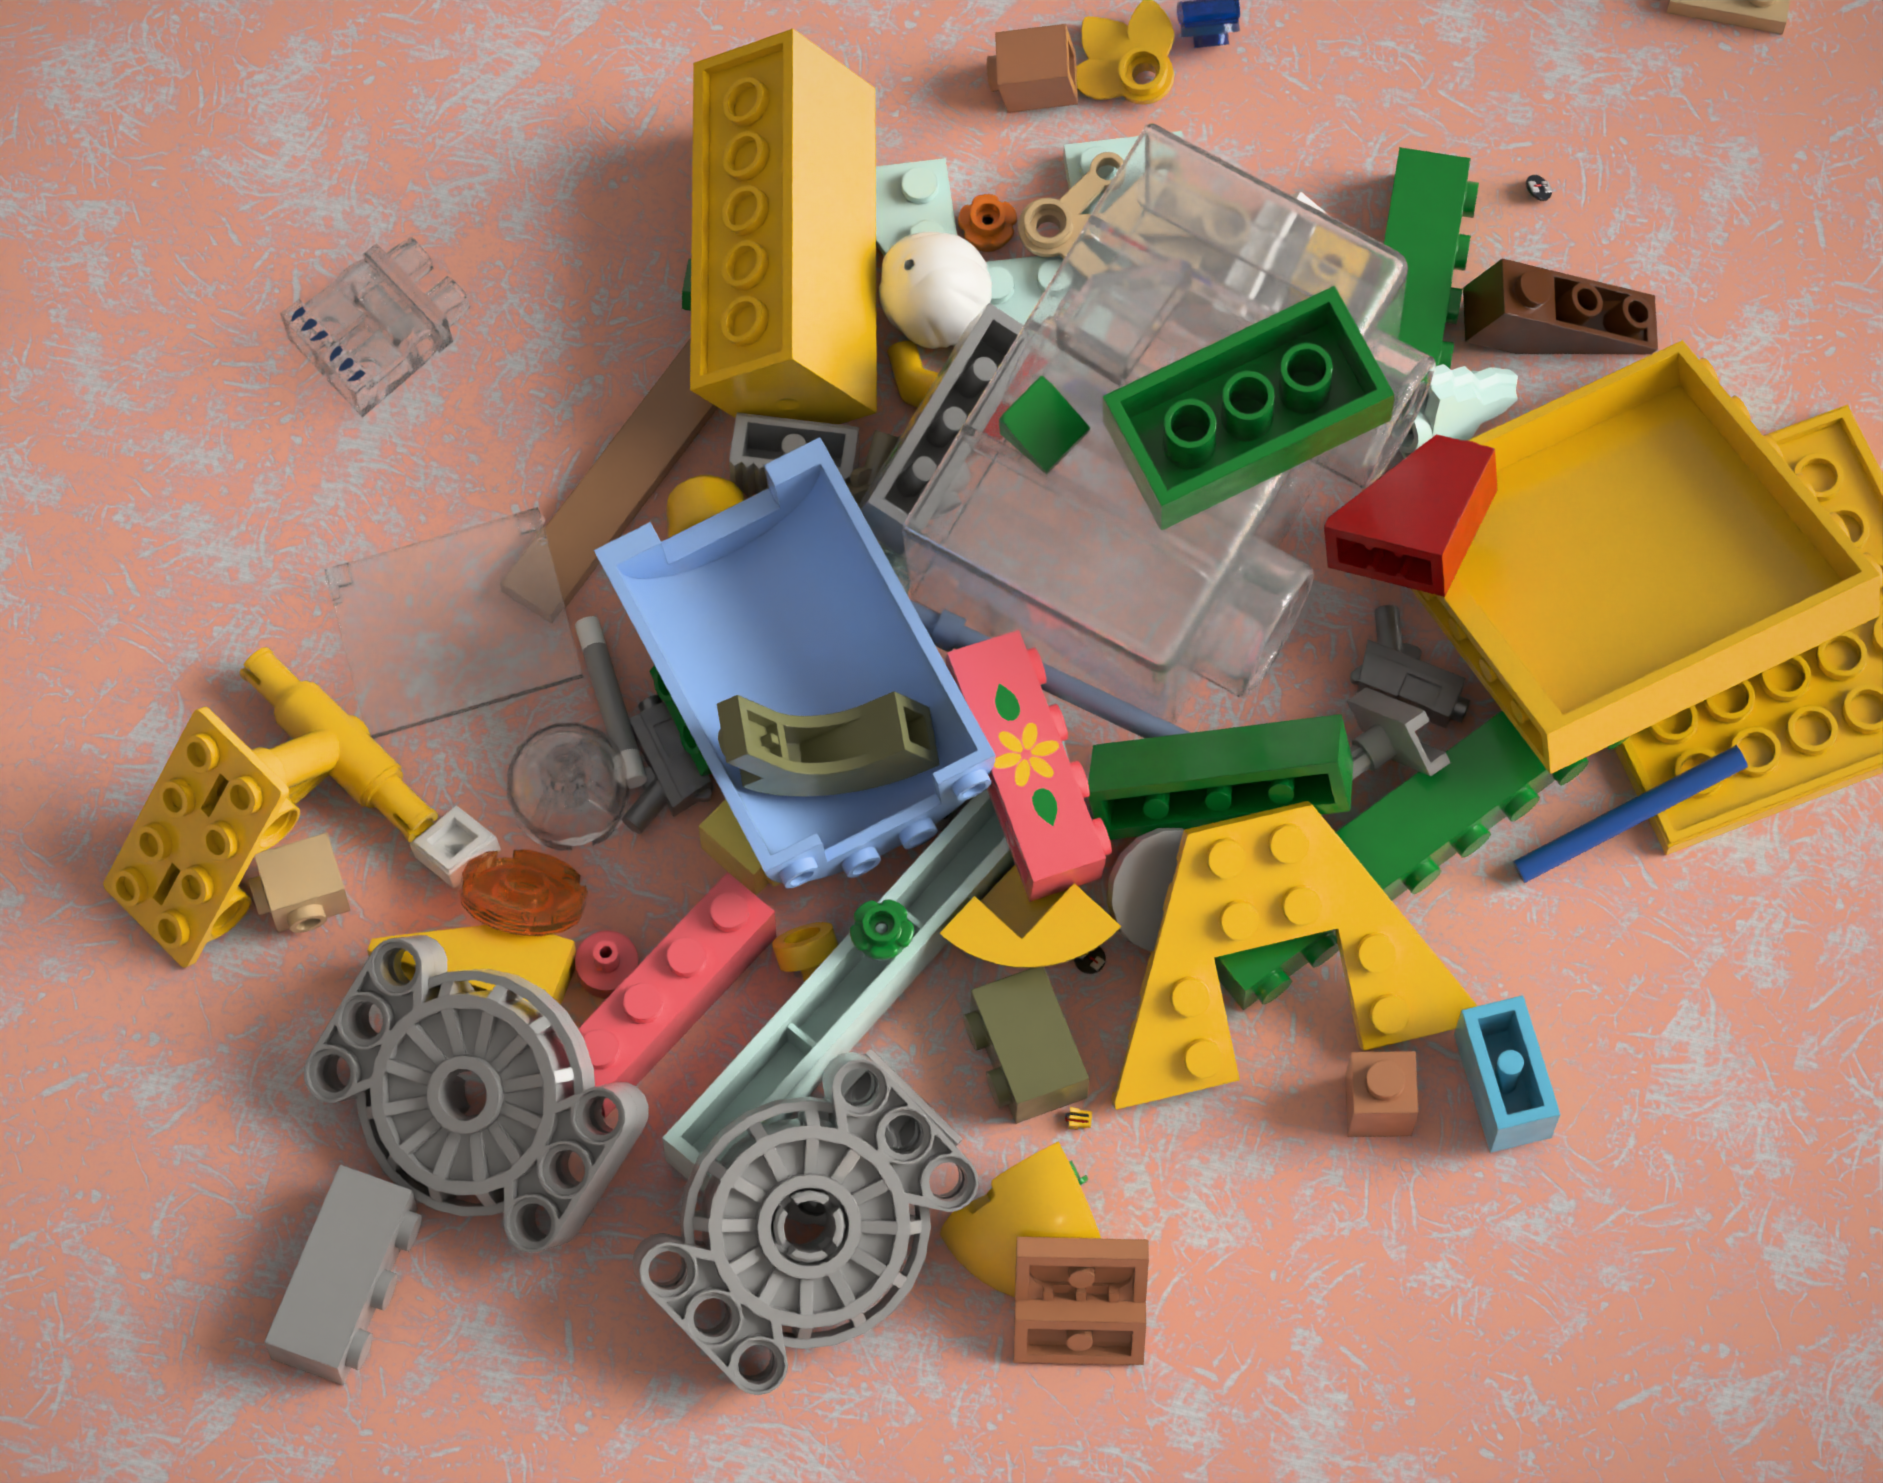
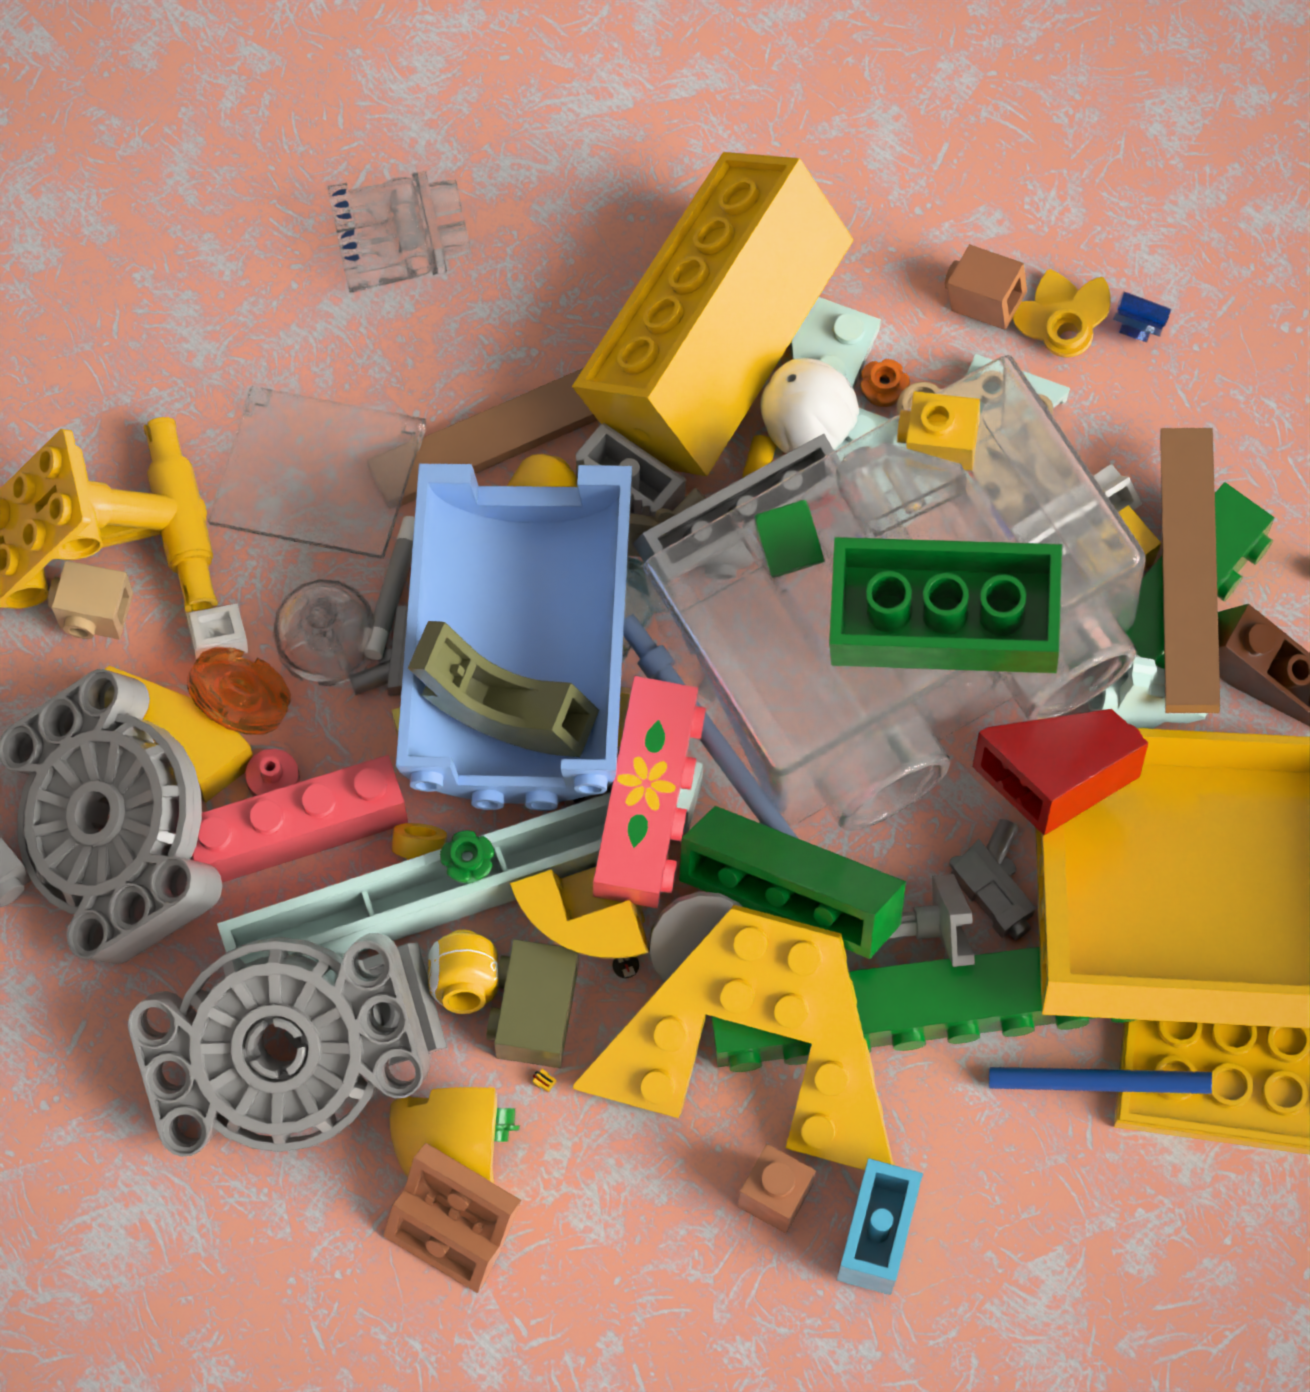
camera: 30 degrees right, 0 degrees up
(935, 1052) = (463, 971): none -> yellow head
(1134, 230) = (941, 427): none -> yellow brick
(1437, 274) = (1189, 571): none -> medium nougat tile

